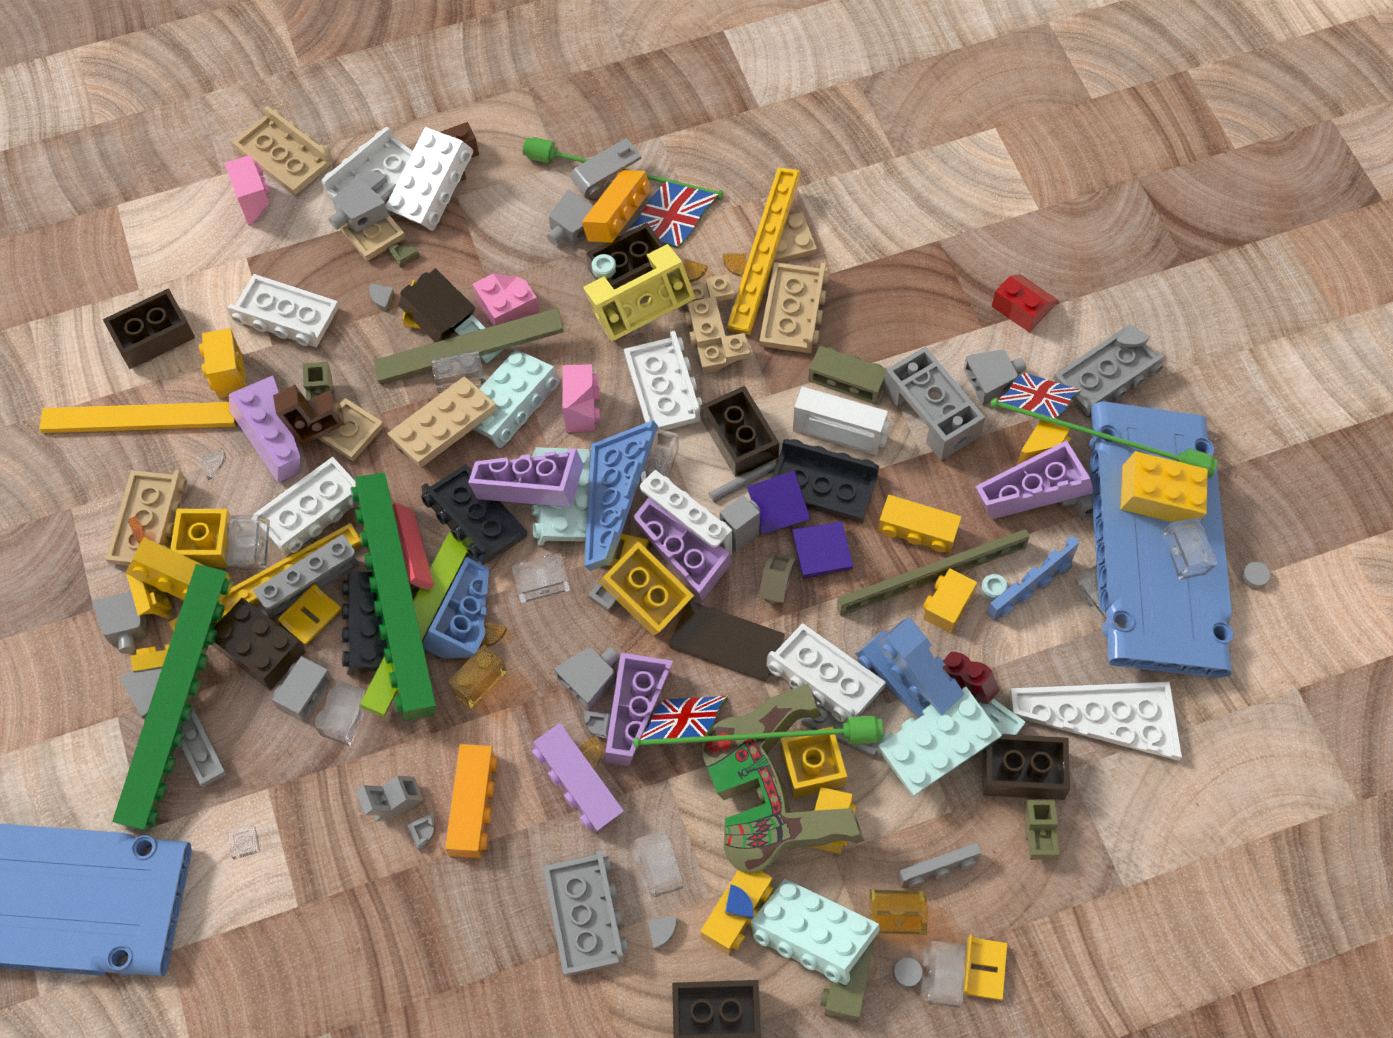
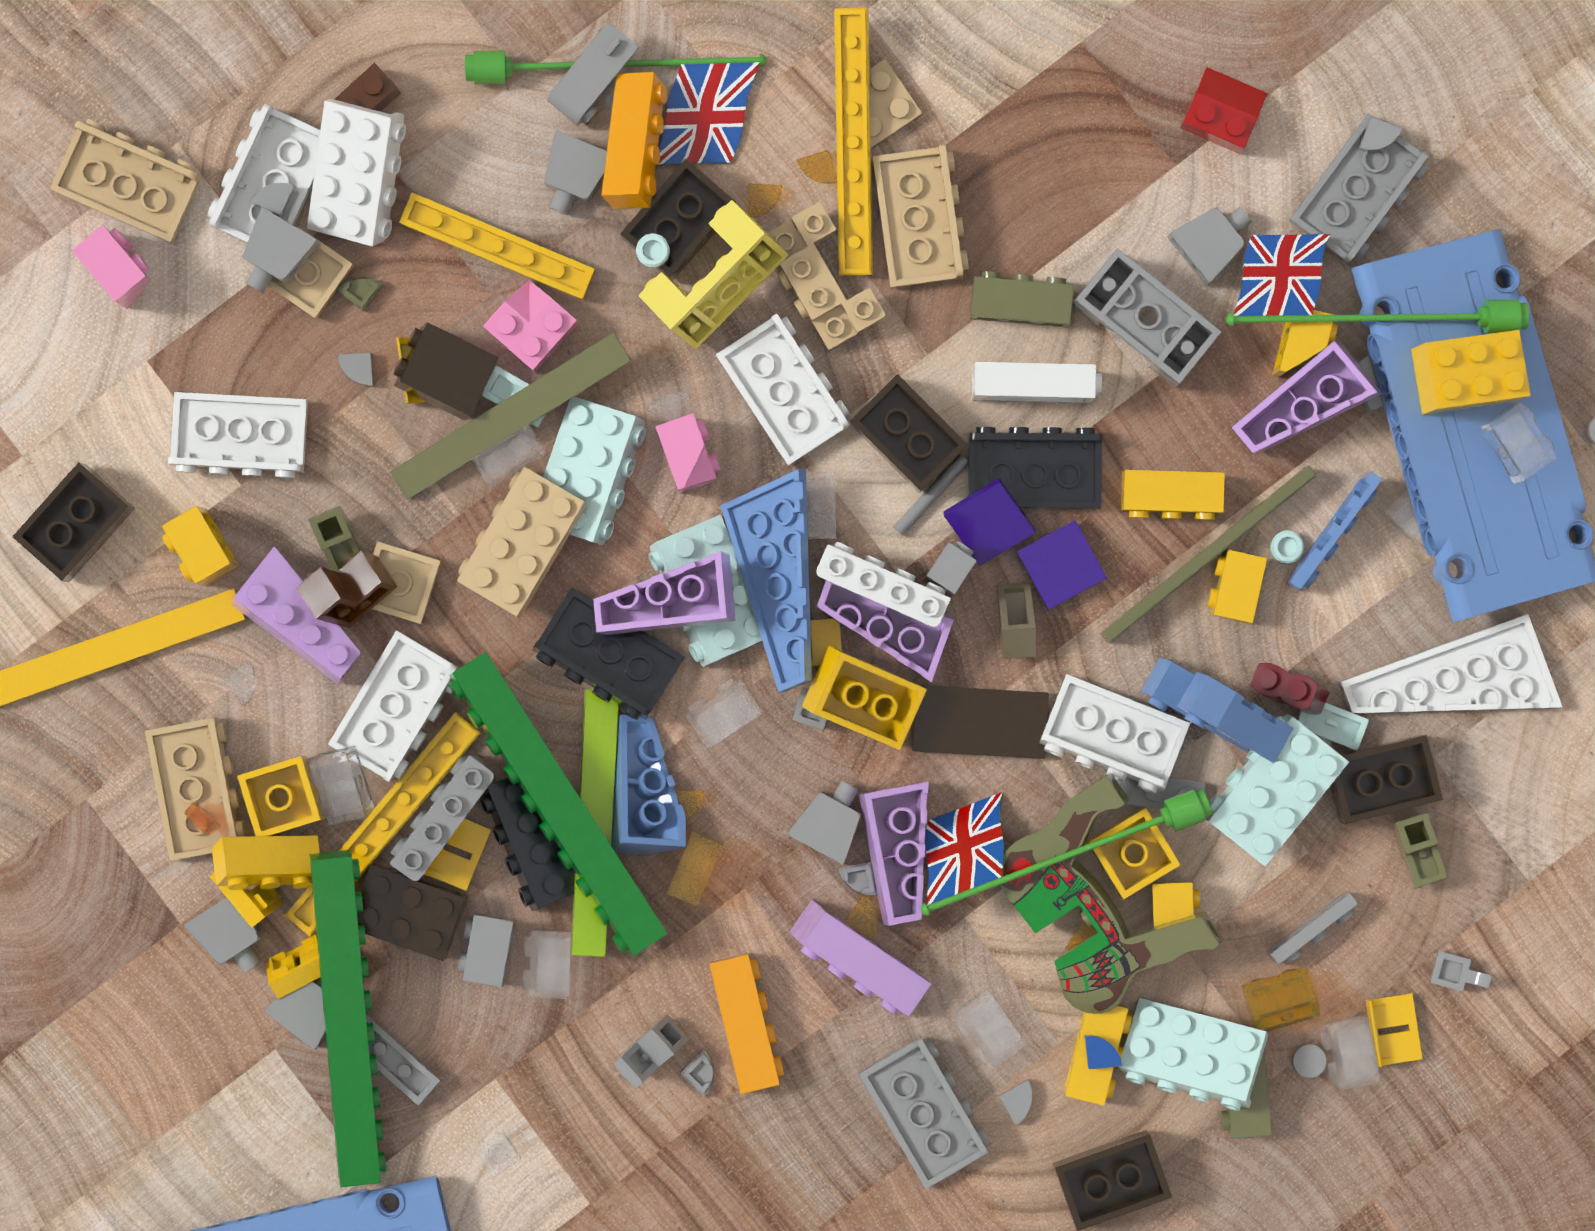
camera: 15 degrees left, 25 degrees up
(412, 547) = (552, 728): coral tile -> none
(504, 250) = (497, 246): none -> yellow plate
(1046, 936) = (1454, 971): none -> light grey plate

